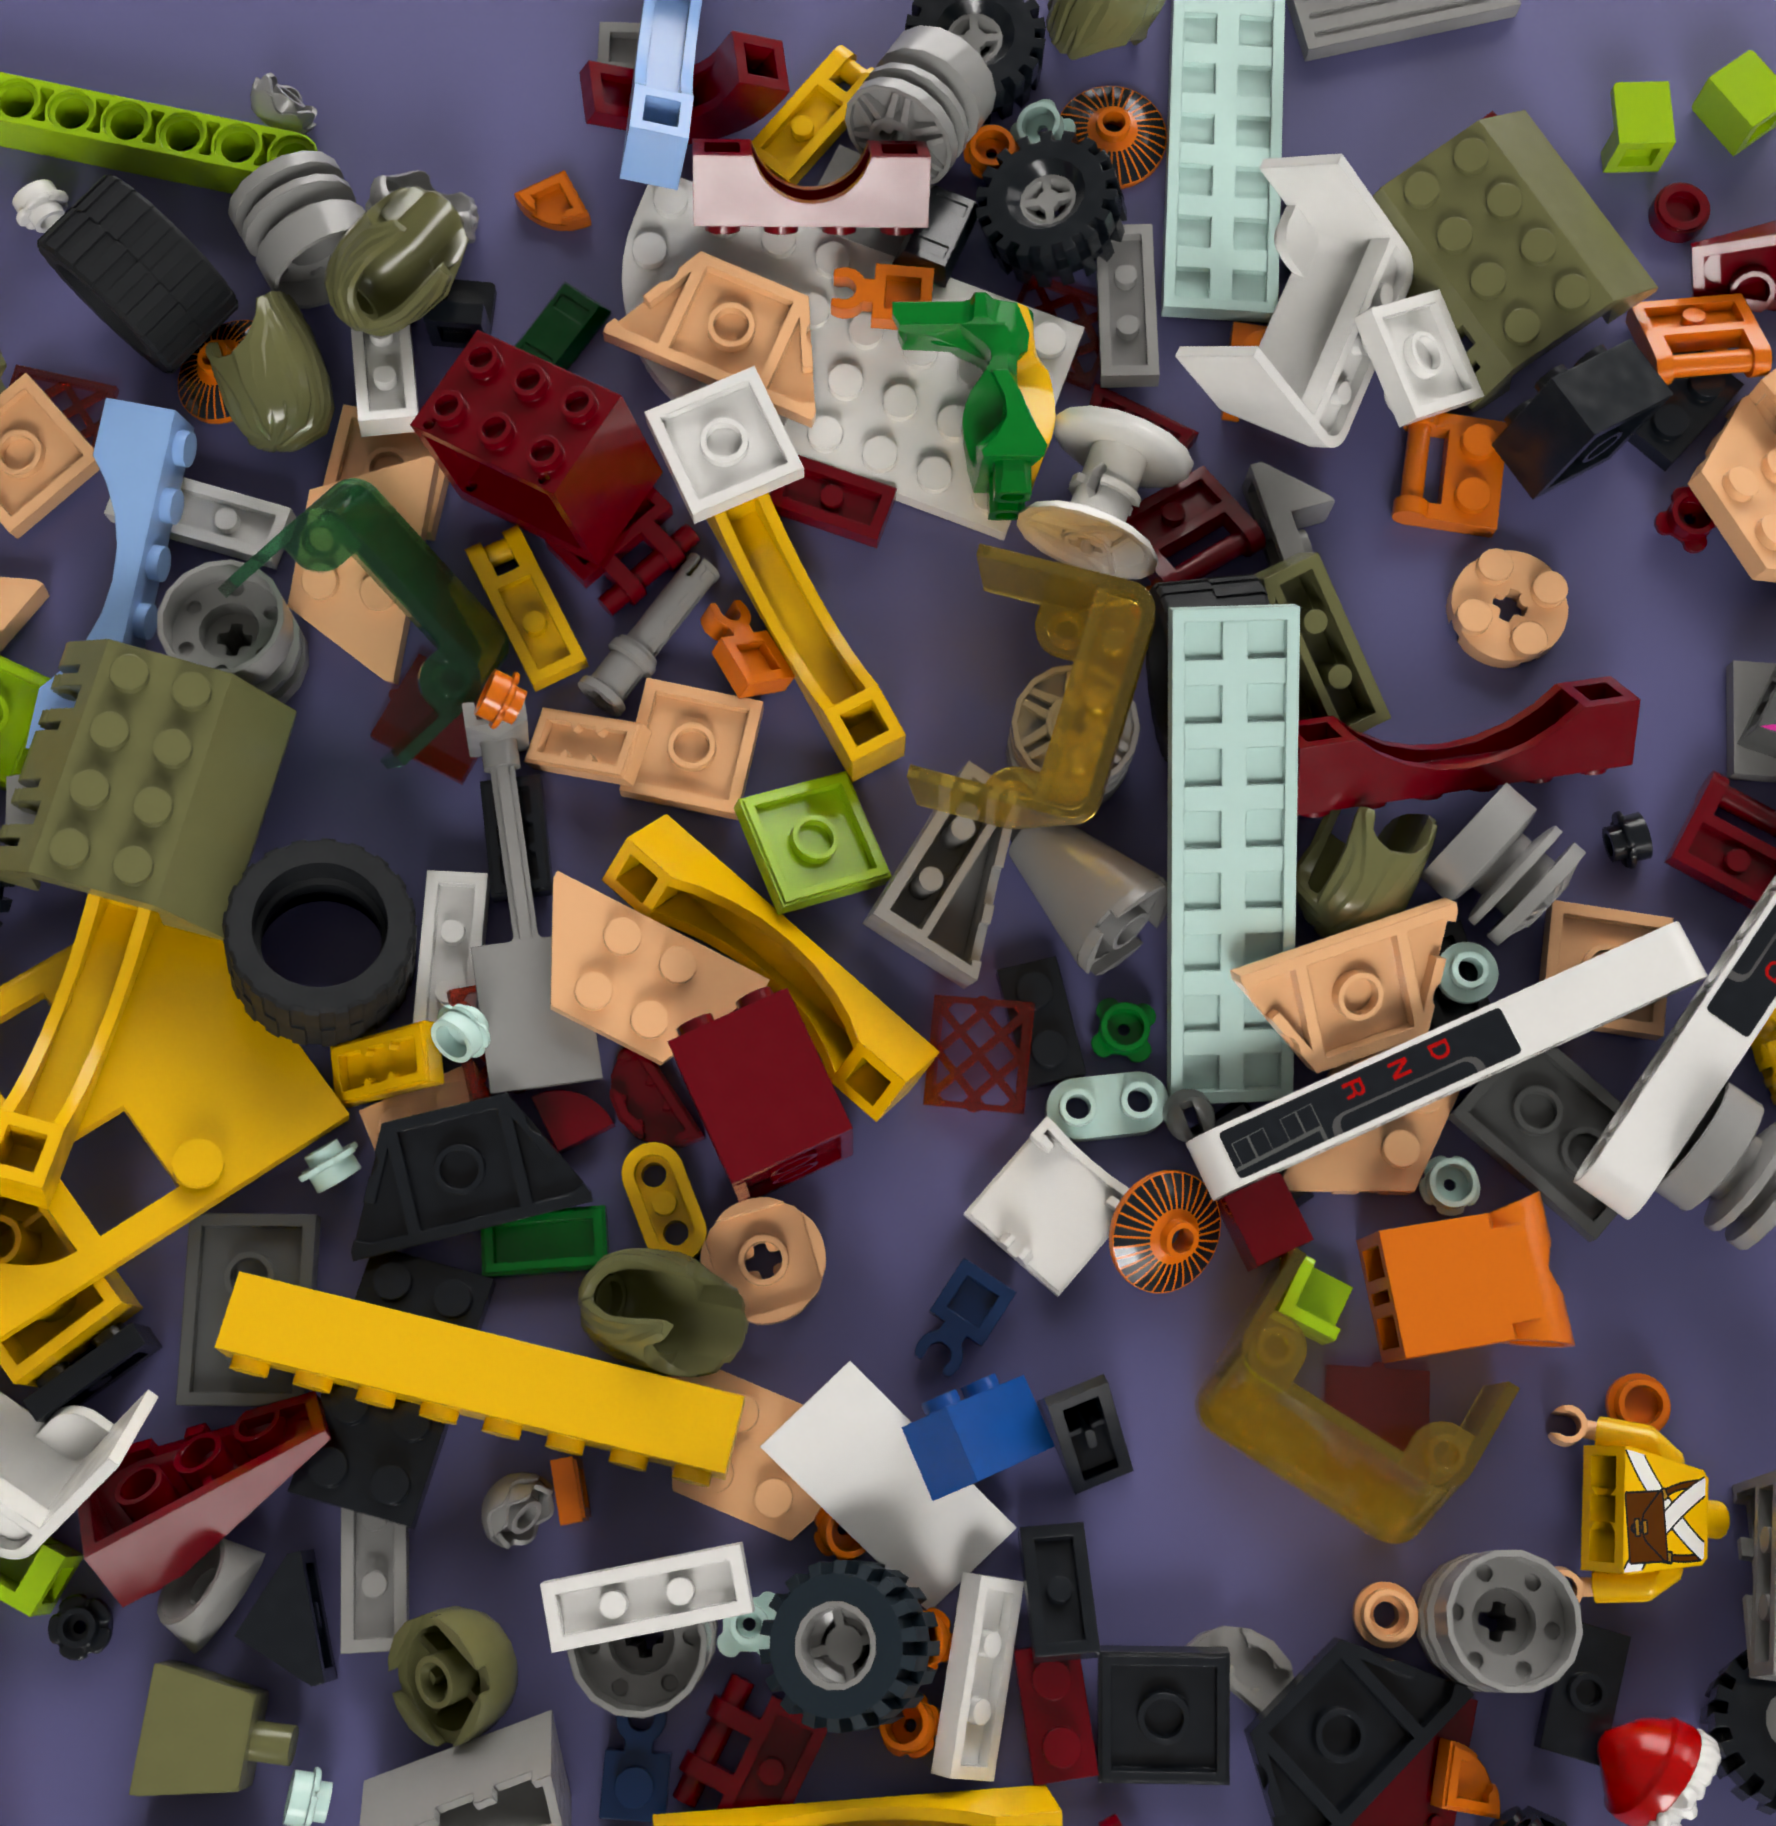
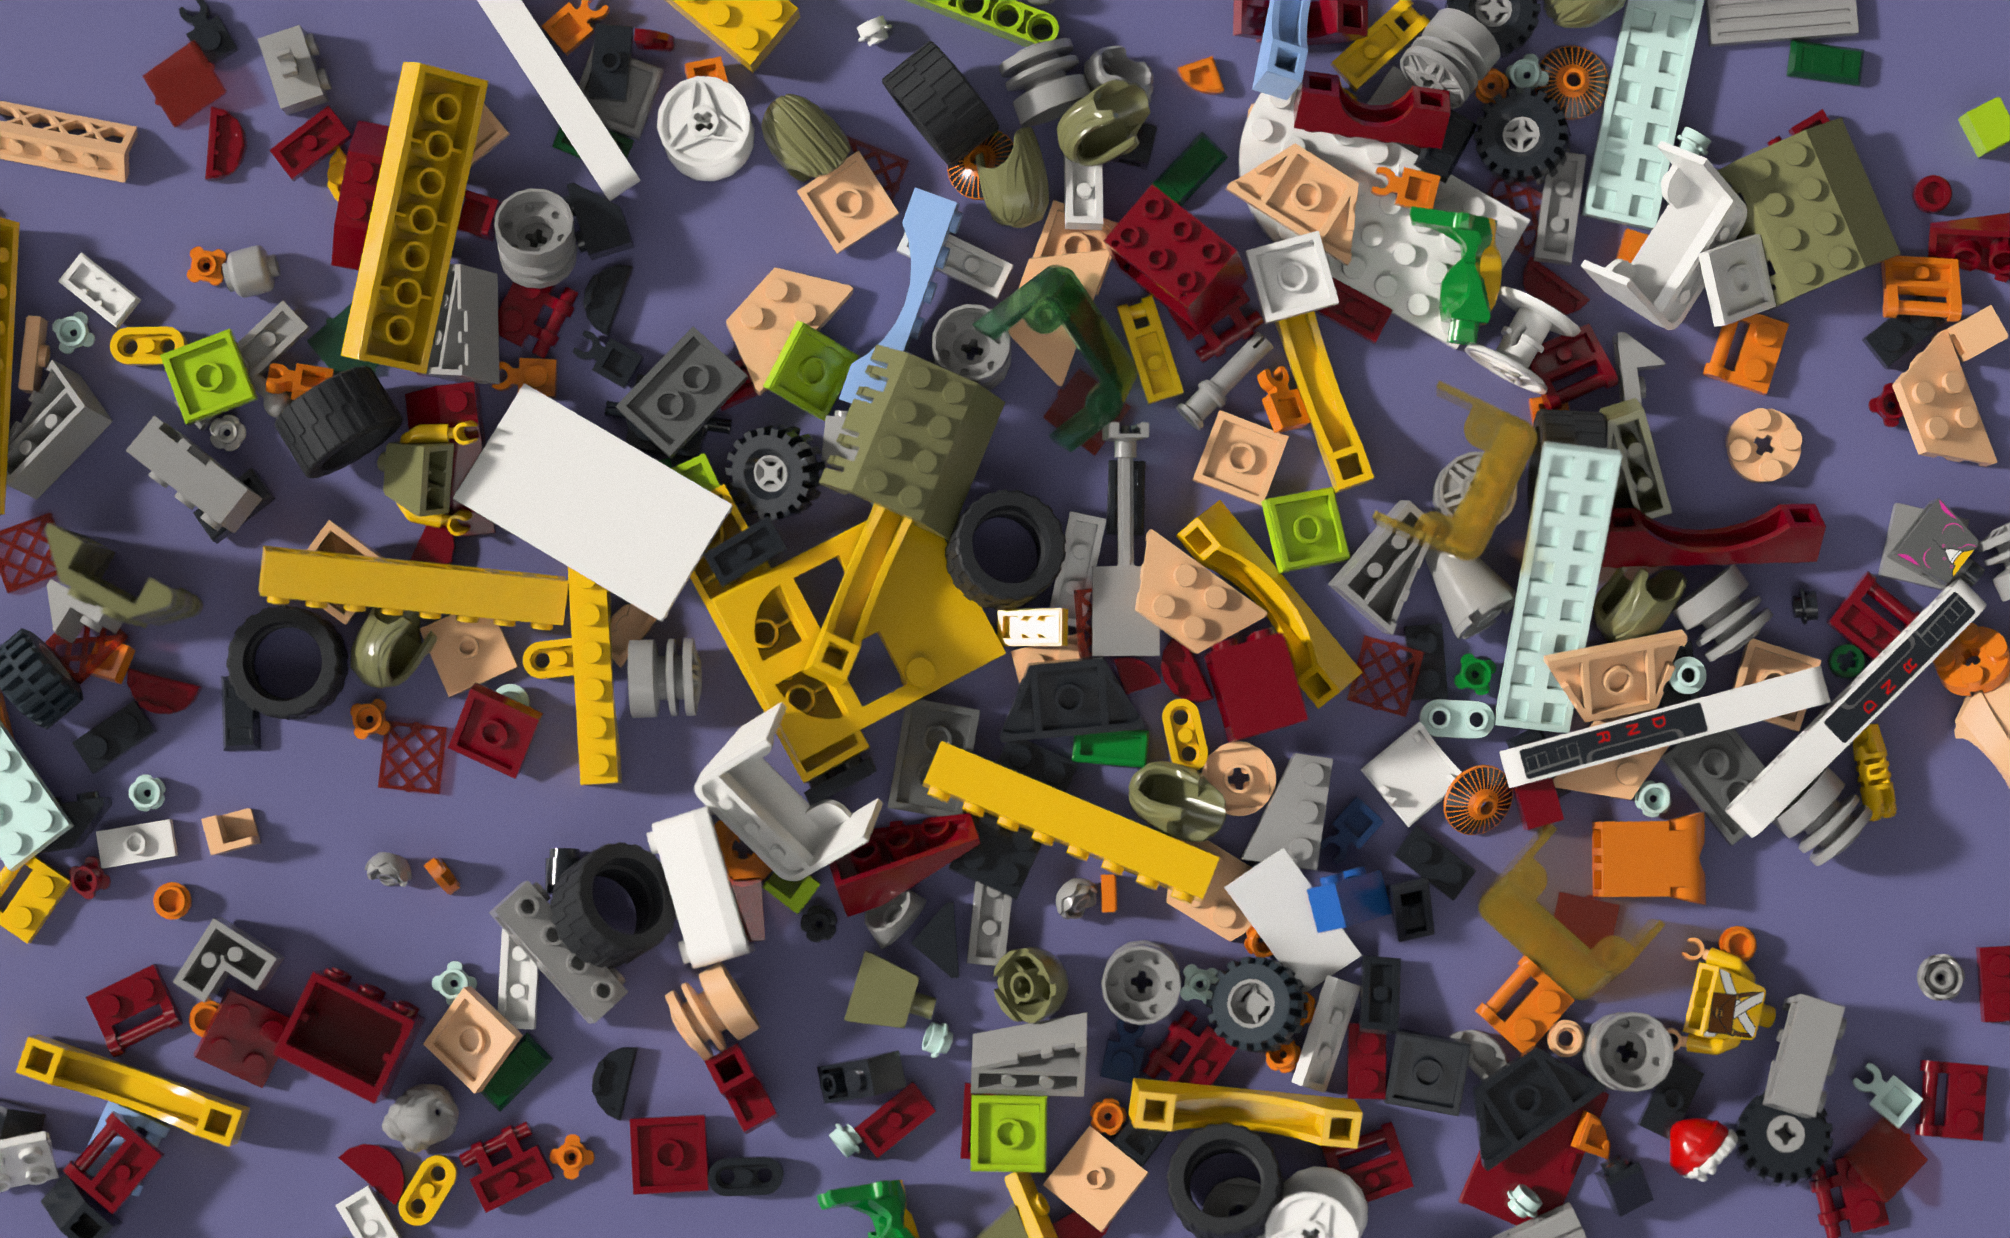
camera: 10 degrees right, 10 degrees up
(330, 1165) = (991, 681): light aqua plate -> none
(460, 1032) = (1082, 618): light aqua plate -> none
(500, 699) = (1136, 425): orange plate -> none
(588, 746) = (1178, 448): light nougat plate -> none
(647, 1597) = (1152, 960): white plate -> none
(864, 1303) = (1294, 813): none -> light grey wedge
(1111, 1346) = (1434, 862): none -> black plate
(1175, 1119) = (1496, 736): dark grey hinge -> none
(1315, 1302) = (1558, 855): lime panel -> none
(1323, 1581) = (1533, 1014): none -> orange plate
(1480, 56) = (1825, 63): none -> dark green tile
(1580, 416) = (1829, 335): black brick -> none
(1642, 127) = (1916, 134): lime panel -> none
(1725, 905) = (1843, 650): none -> dark green bush

